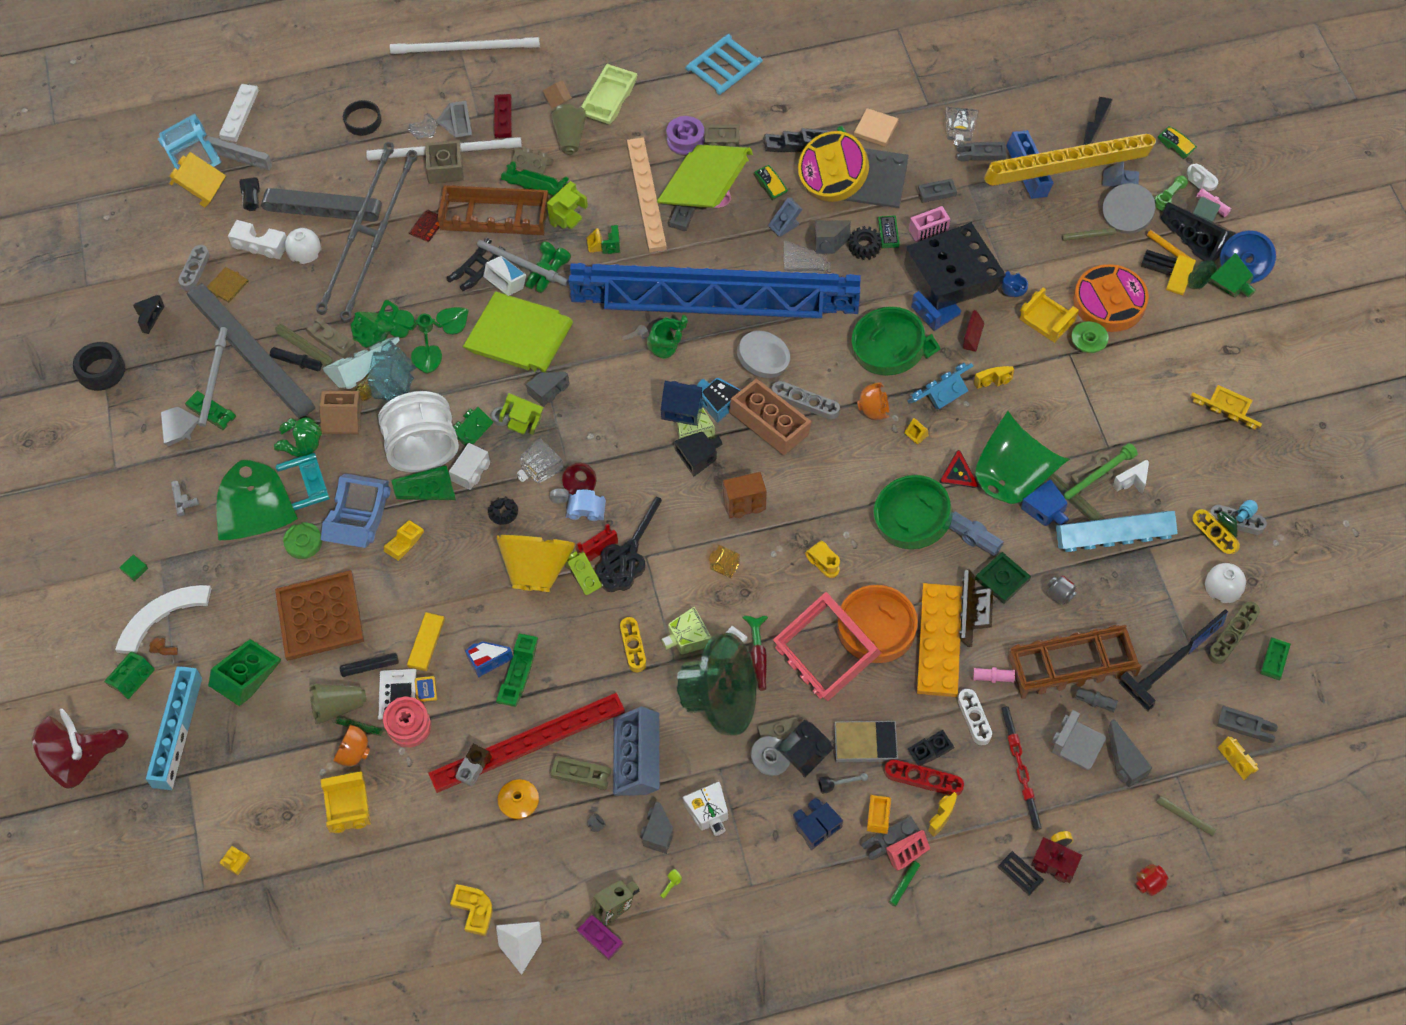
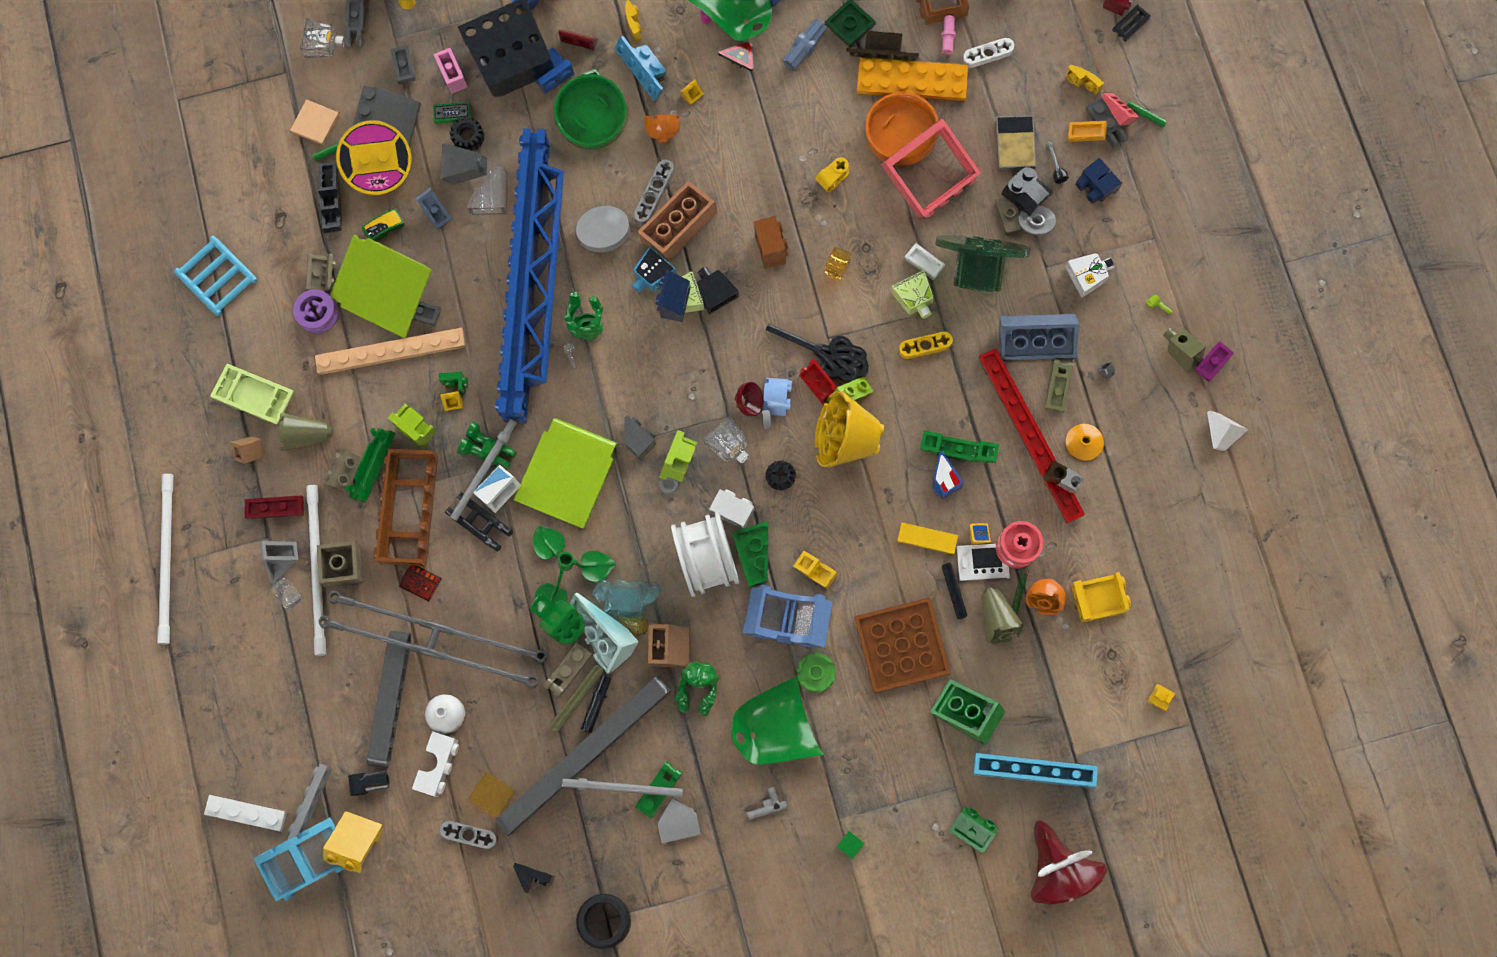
camera: 85 degrees left, 15 degrees up
(157, 610) = (900, 813): white tile -> none
(158, 646) = (942, 803): dark orange plate -> none
(312, 479) = (745, 669): teal plate -> none
(359, 105) = (246, 660): black tyre -> none
(473, 426) = (681, 508): green bracket -> none
(478, 905) = (1193, 467): yellow plate -> none
(658, 831) = (1112, 314): dark grey slope -> none
(758, 652) = (929, 233): dark red piece -> none
(913, 512) = (785, 93): green brick -> none
(925, 774) = (1048, 95): red beam -> none
(931, 748) = (1019, 89): black slope -> none
(1028, 793) = (1011, 22): piece -> none

